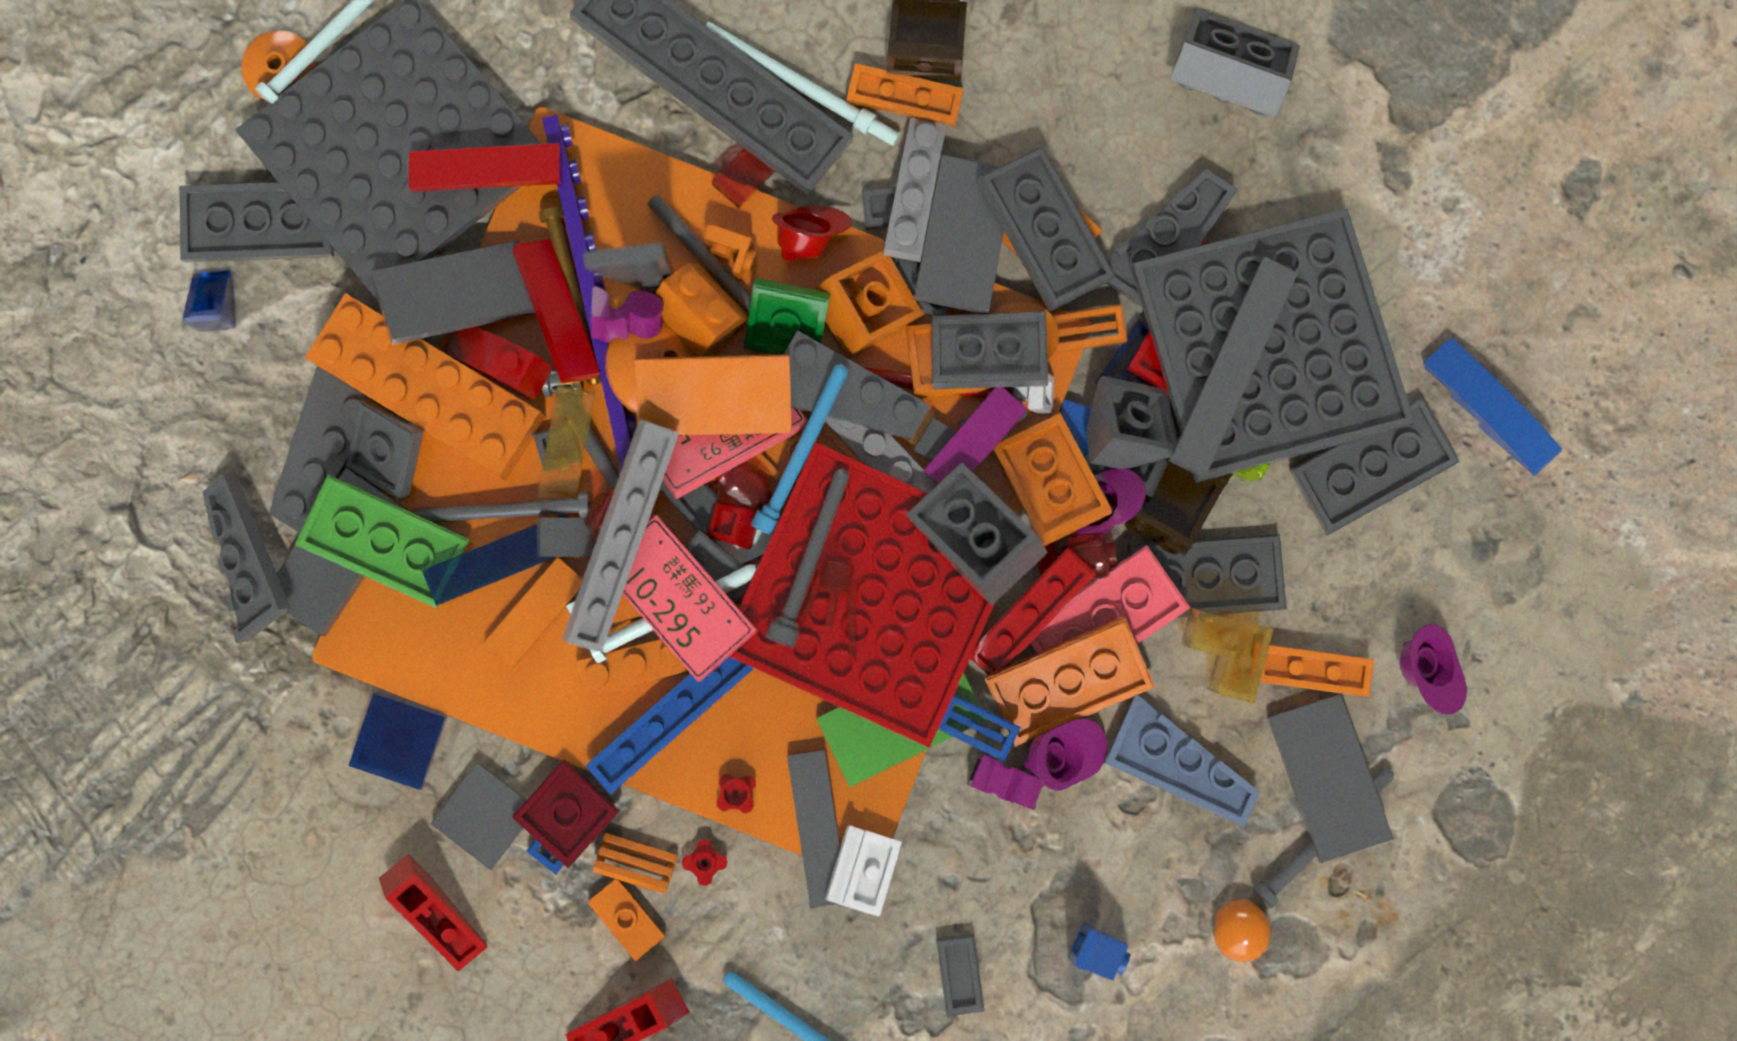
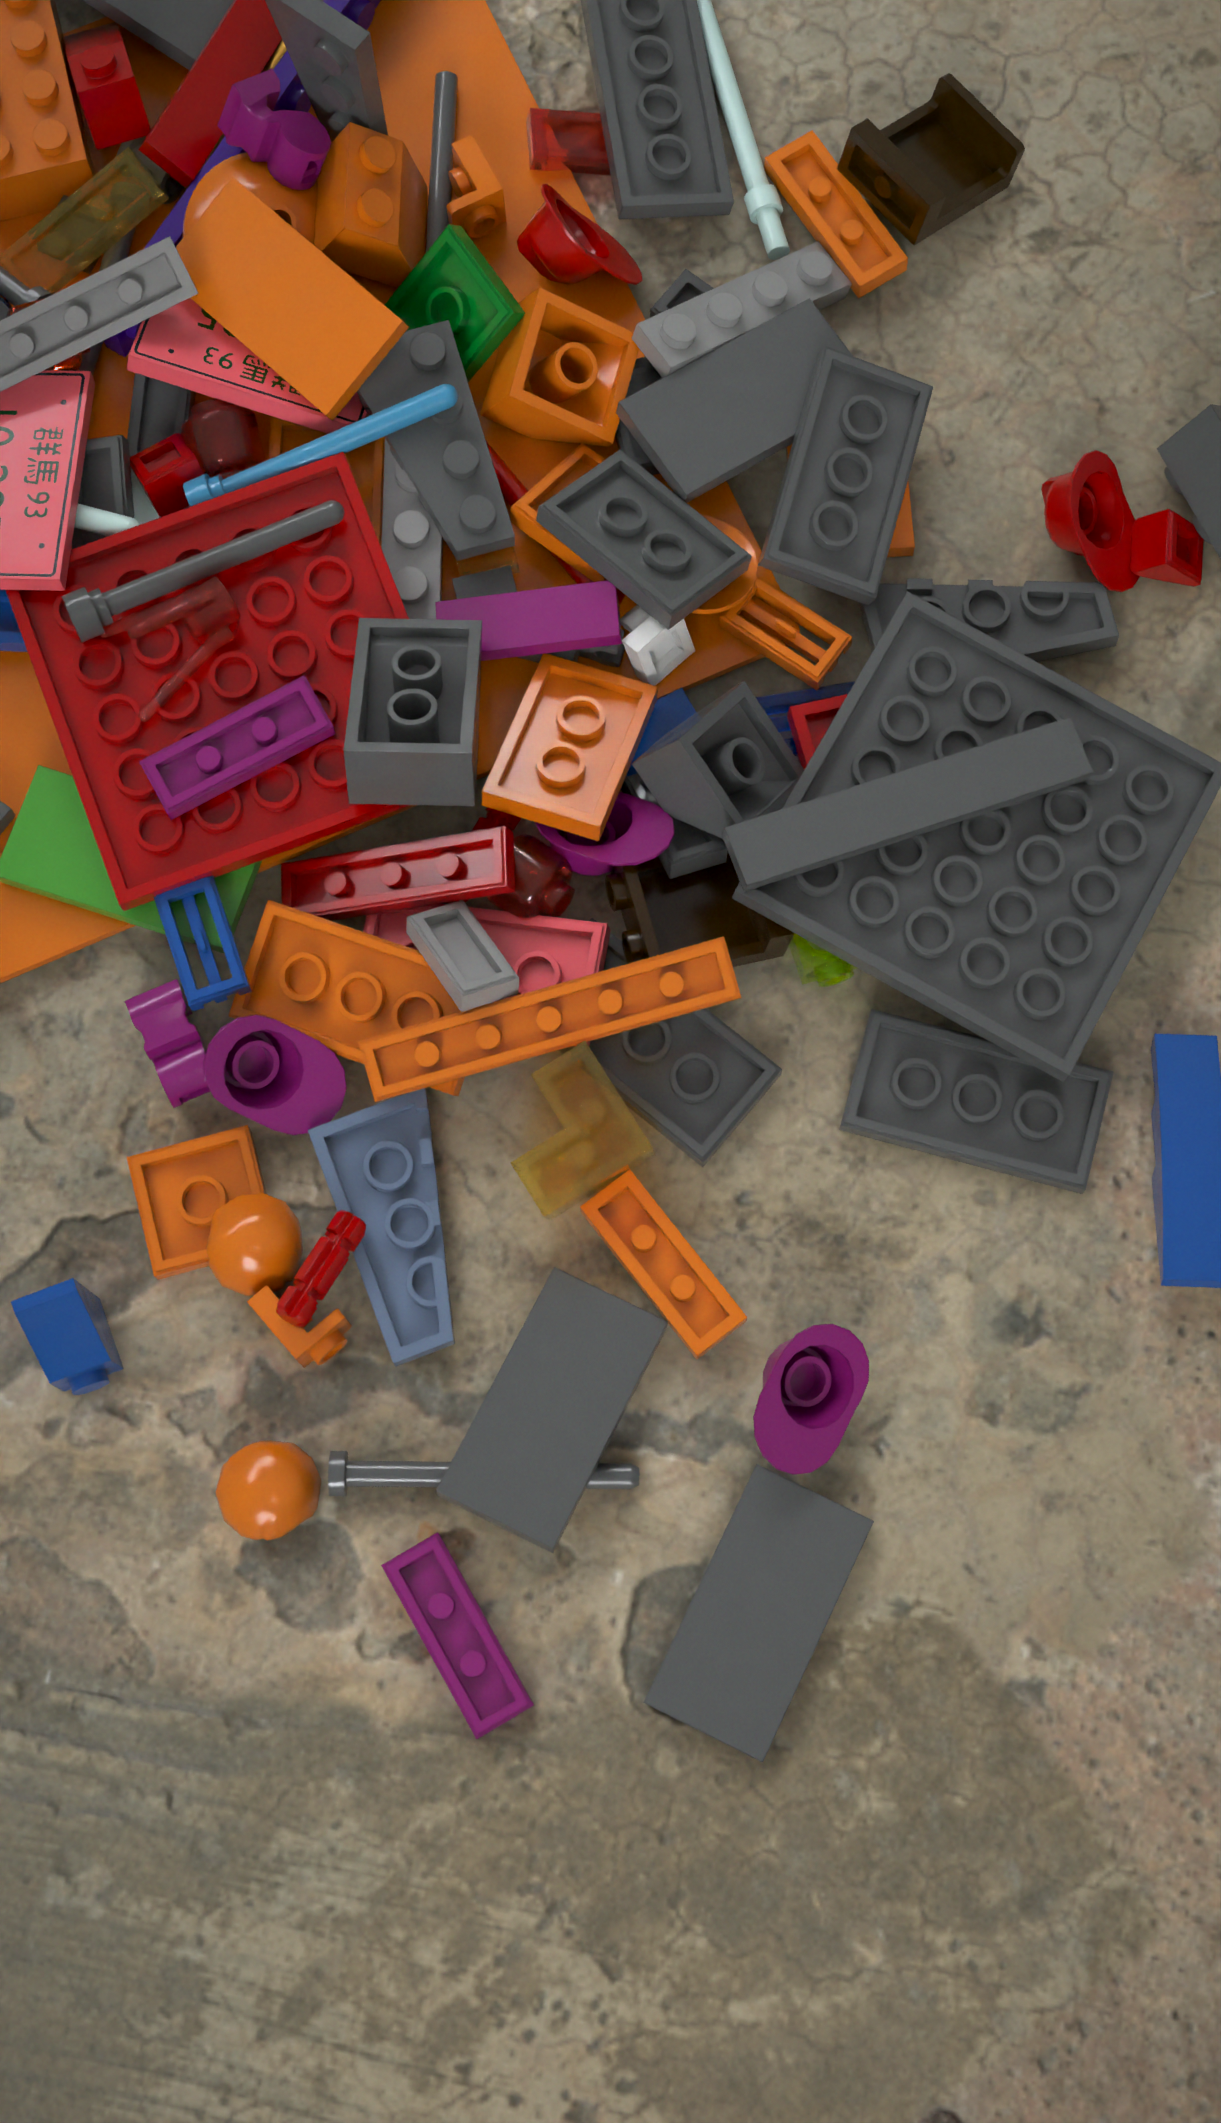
camera: 50 degrees right, 10 degrees down
(911, 626) = (237, 747): none -> magenta tile
(1086, 837) = (184, 1187): none -> orange tile
(1103, 623) = (462, 955): none -> light grey tile
(1133, 834) = (254, 1244): none -> orange hair
(1170, 614) = (549, 1019): none -> orange tile
(1175, 142) = (1092, 519): none -> red piece
(1179, 818) = (321, 1268): none -> red axle
(1180, 853) = (318, 1344): none -> orange bracket
(1215, 123) = (1167, 549): none -> red slope
(1381, 911) = (457, 1635): none -> magenta tile
(1496, 778) = (759, 1612): none -> dark grey tile

